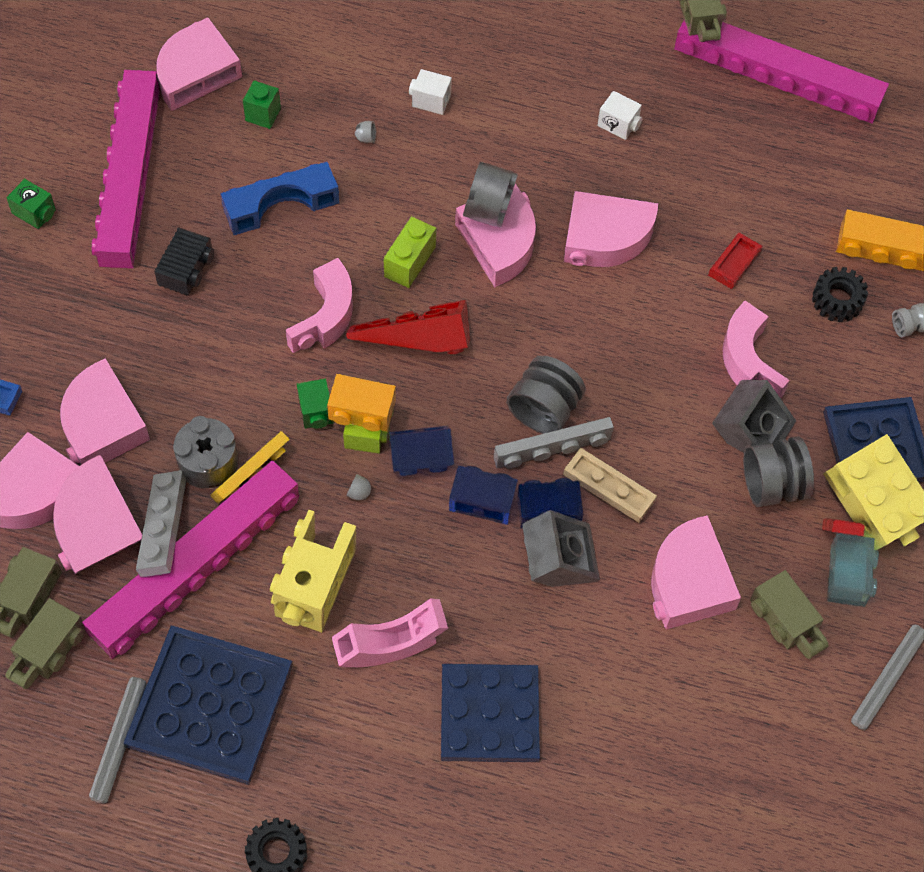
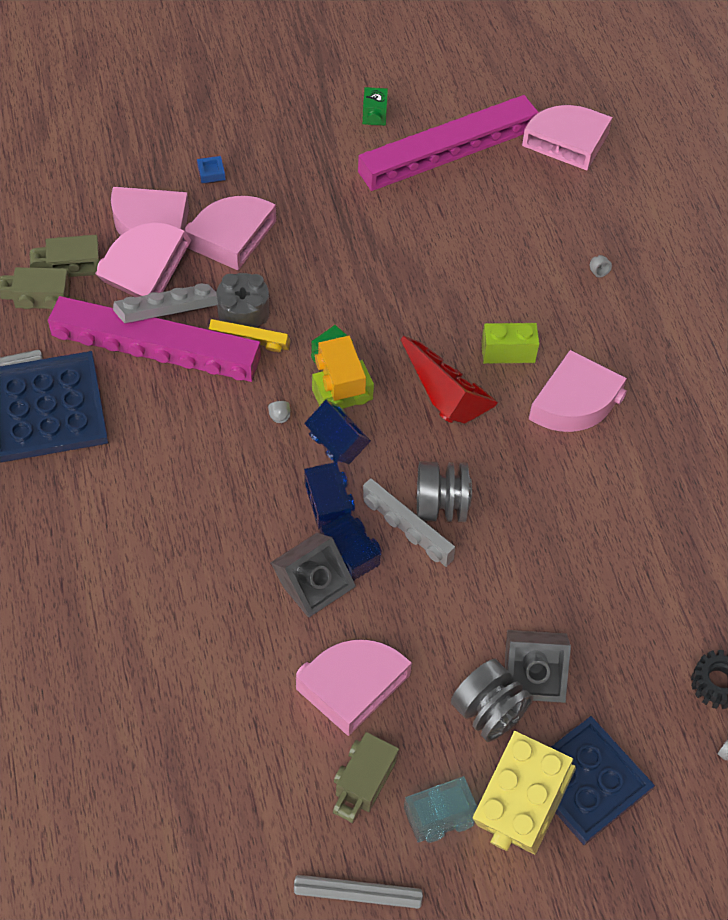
camera: 60 degrees right, 5 degrees down
(183, 261) = (394, 212): black brick -> none
(261, 104) = (566, 189): green brick -> none
(310, 186) = (471, 225): blue arch -> none
(311, 575) = (182, 411): light yellow torso -> none
(334, 316) = (420, 322): bright pink arch -> none
(391, 641) = (158, 489): bright pink arch -> none
(430, 91) = (671, 287): white brick -> none
(490, 194) = (590, 357): flat silver brick -> none
(490, 713) = (144, 592): dark blue plate -> none
(608, 229) = (640, 468): bright pink brick -> none
(610, 485) = (398, 583): tan plate -> none
(735, 260) = (691, 581): red tile -> none
(739, 351) = (605, 617): bright pink arch -> none
(843, 527) = (470, 777): red tile -> none

